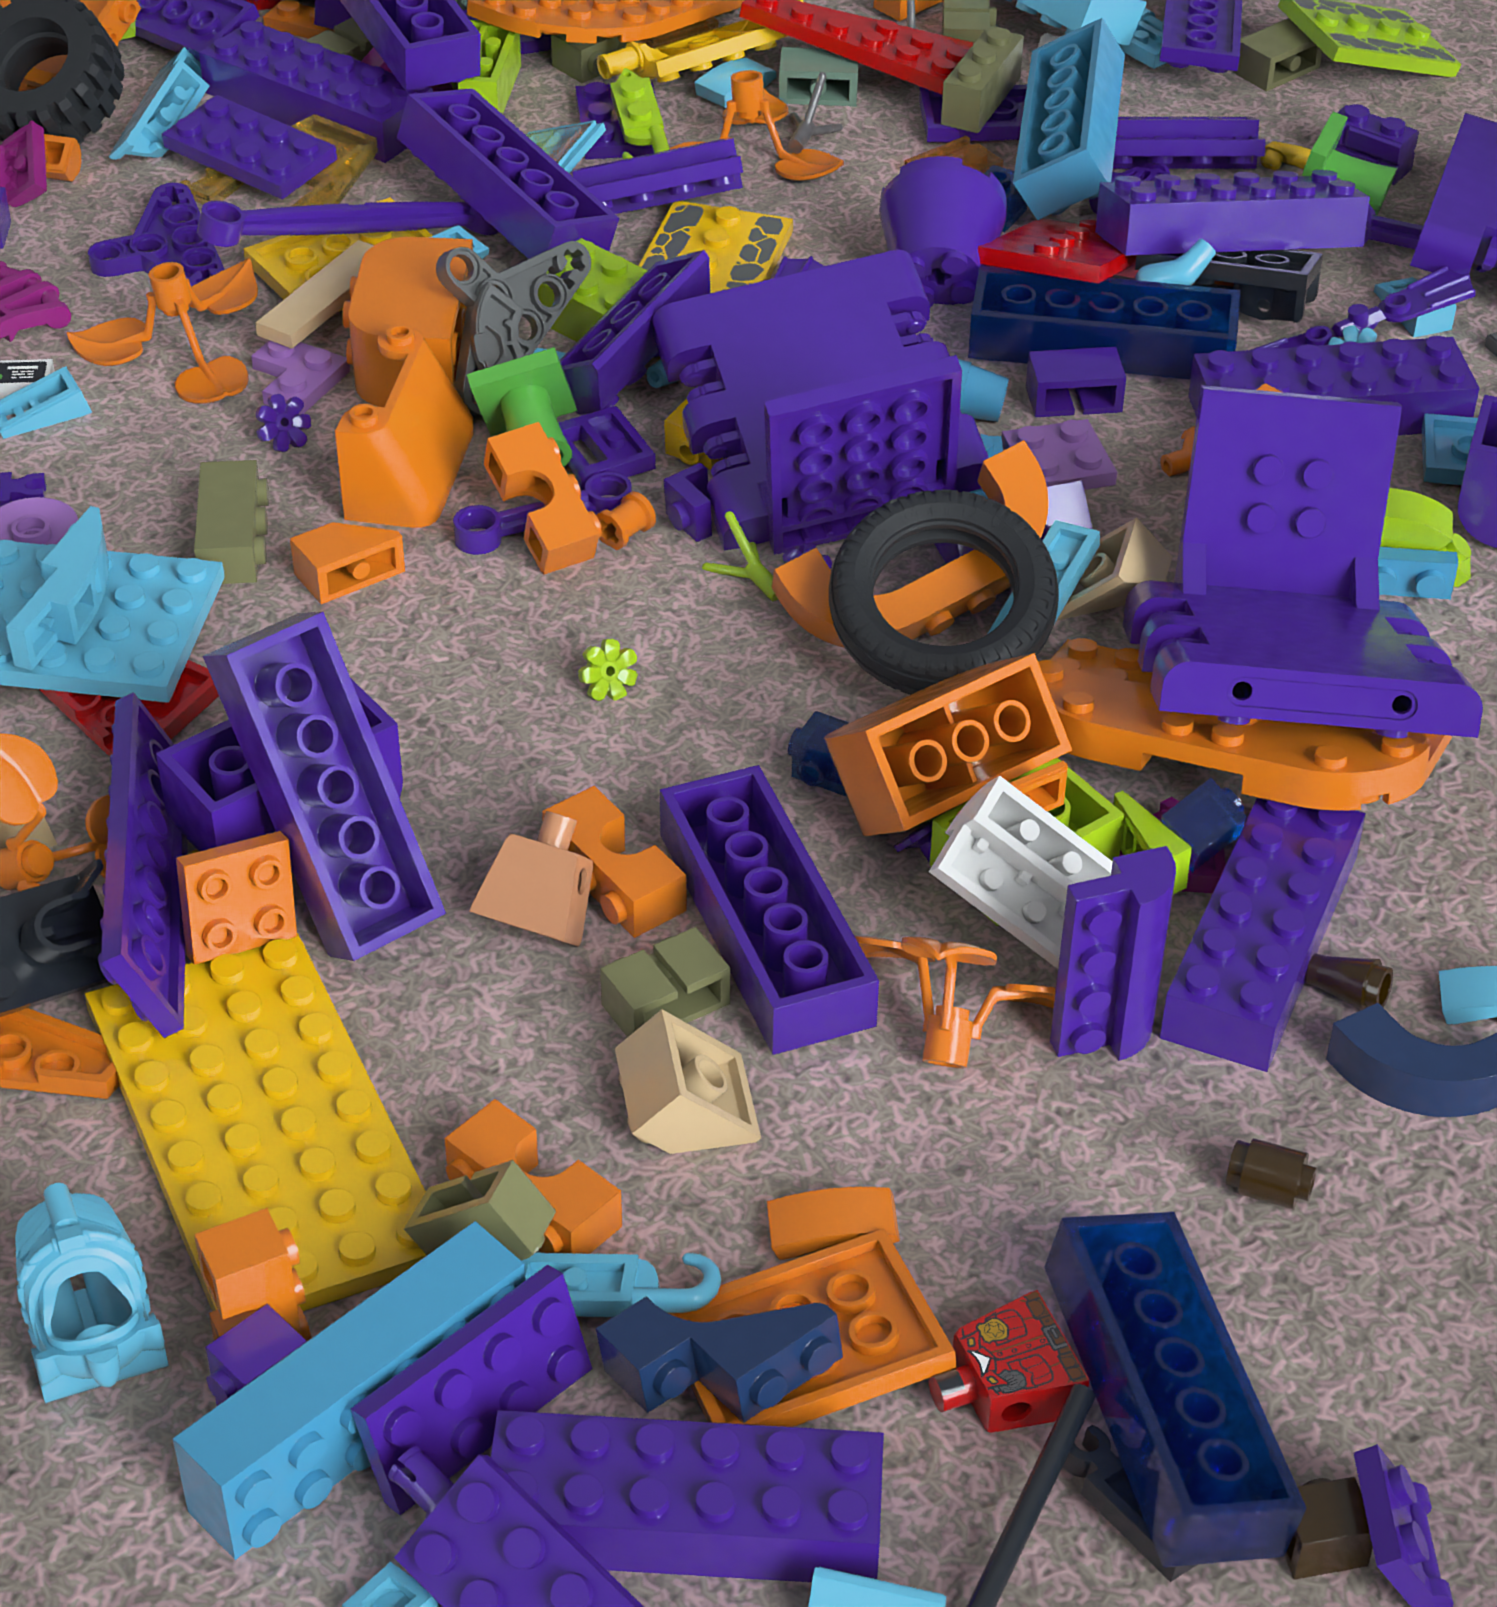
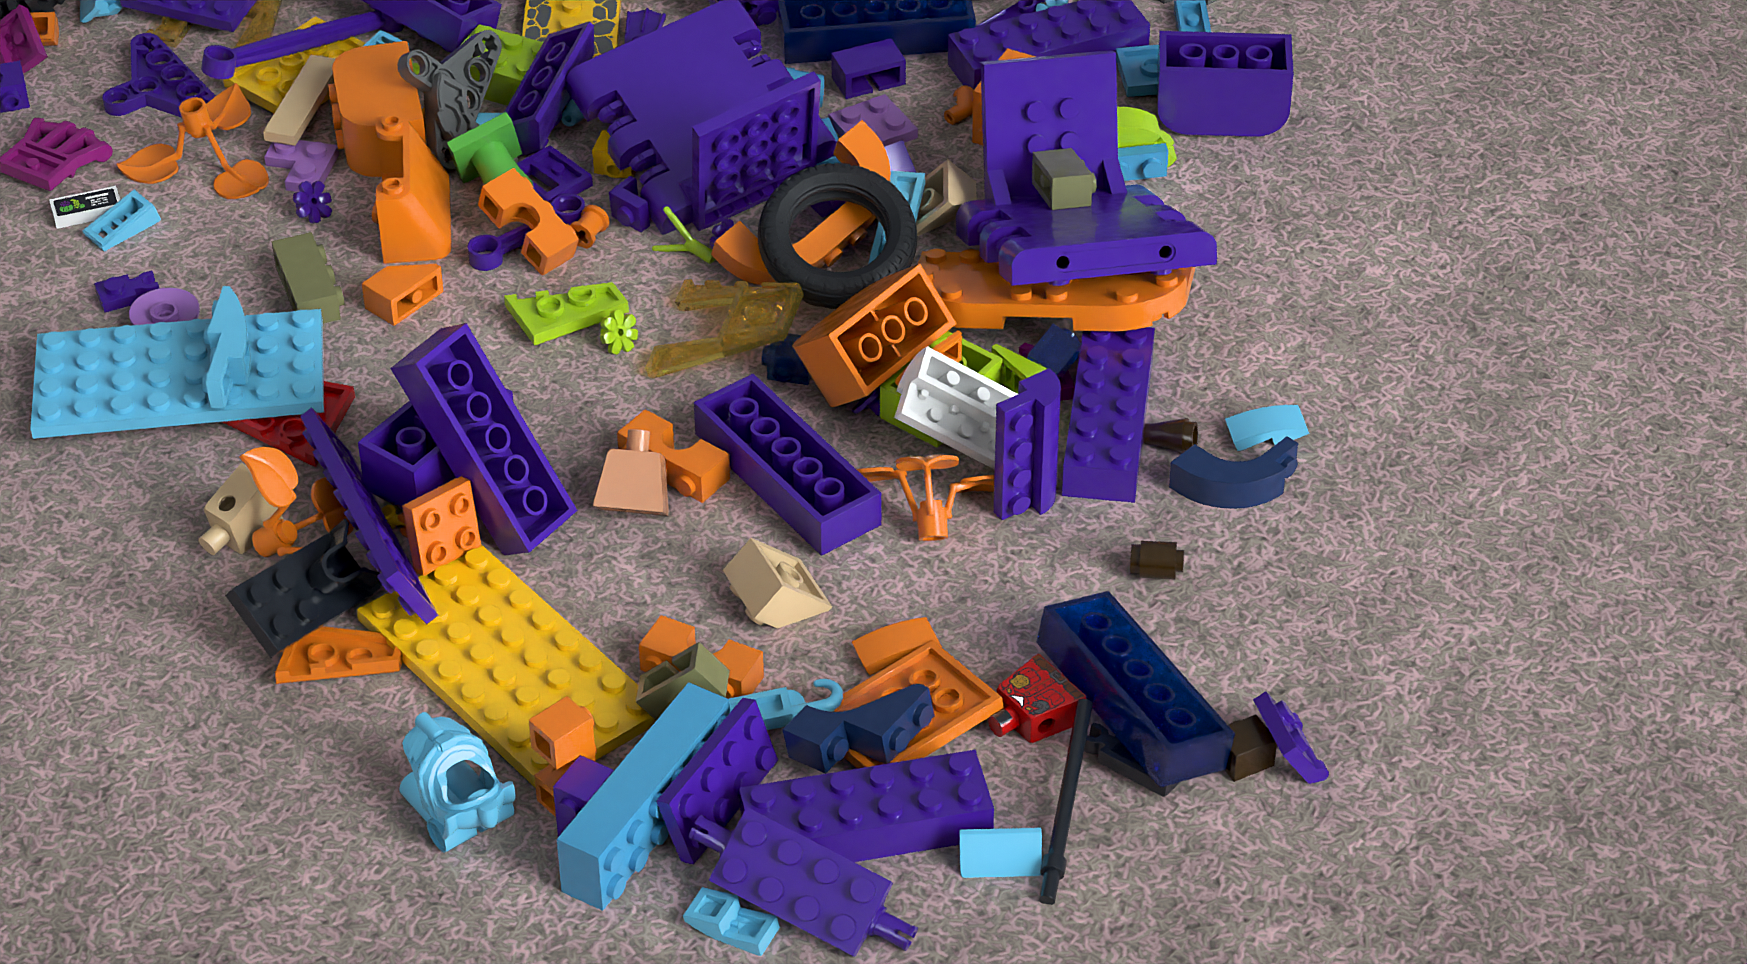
camera: 15 degrees left, 0 degrees up
(539, 631) = (560, 314): none -> lime wing
(678, 977) = (730, 527): olive piece -> none
(792, 690) = (753, 320): none -> clear yellow wing
(1287, 573) = (1062, 179): none -> olive brick

